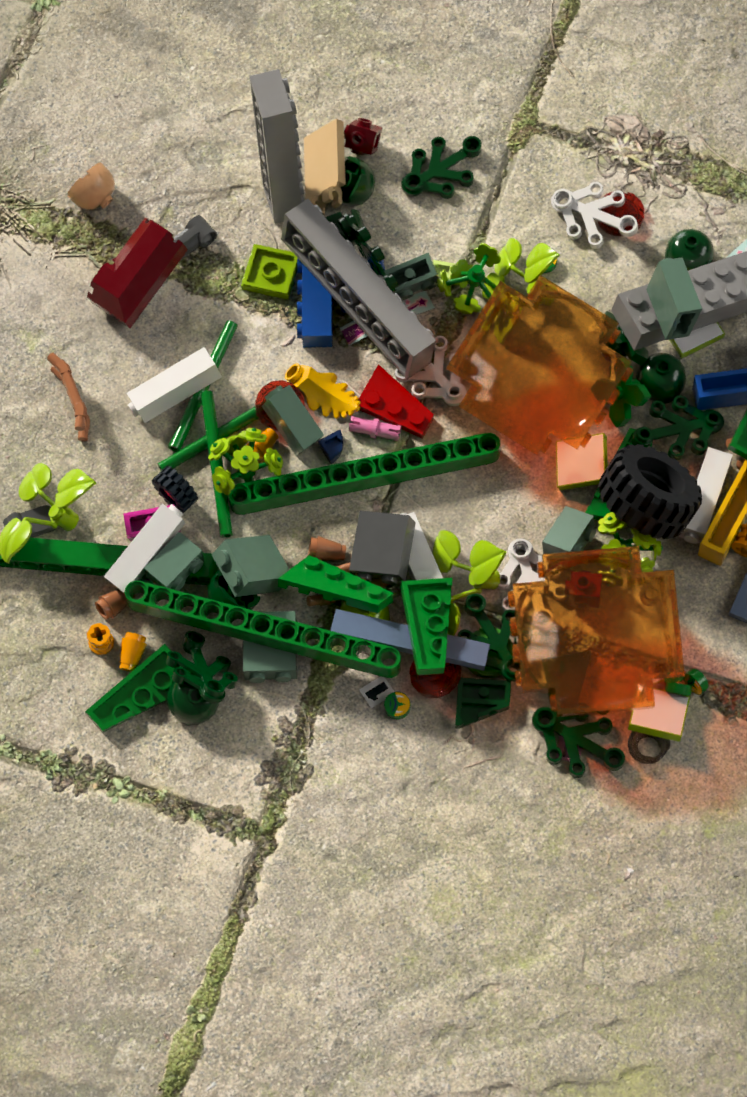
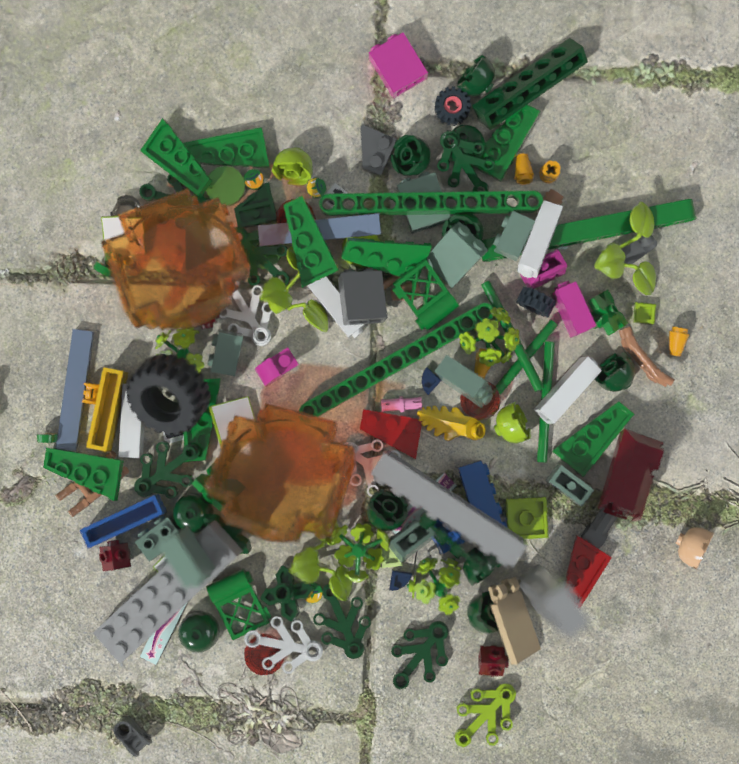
camera: 160 degrees right, 20 degrees up
(21, 409) = (677, 340): none -> light orange cone
(49, 450) = (644, 313): none -> lime tile
(72, 742) = (530, 83): none -> dark green brick
(96, 452) = (606, 313): none -> green plant
(109, 388) = (616, 373): none -> dark green cylinder
(134, 467) = (572, 308): none -> dark pink brick
(150, 776) = (477, 77): none -> dark green cylinder
(166, 328) = (592, 440): none -> green wing
(205, 750) = (442, 109): none -> black bush
(210, 285) = (569, 485): none -> sand green brick
(227, 199) = (585, 568): none -> red wing
(243, 823) = (397, 64): none -> dark pink brick
(252, 367) = (512, 424): none -> lime cylinder
(266, 700) = (411, 155): none -> dark green cylinder
(298, 521) = (433, 309): none -> green piece
(307, 730) = (375, 150): none -> dark grey wing
(384, 222) = (427, 590): none -> lime plant
(387, 92) = (488, 713): none -> lime plant
(416, 735) = (293, 165): none -> lime cylinder
(433, 310) = (386, 510): none -> dark green cylinder
(440, 248) = (399, 579): none -> dark blue tile
(473, 738) = (254, 179): none -> tile
(483, 780) = (233, 149): none -> green wing
(512, 740) = (227, 185): none -> bright green tile
(516, 502) = (276, 366): none -> dark pink brick
(519, 217) = (343, 625): none -> dark green plant
(568, 789) = (174, 157): none -> green wing
(576, 264) = (289, 603): none -> dark green plant
(636, 277) = (235, 587): none -> green piece
(708, 357) = (150, 539): none -> sand green brick

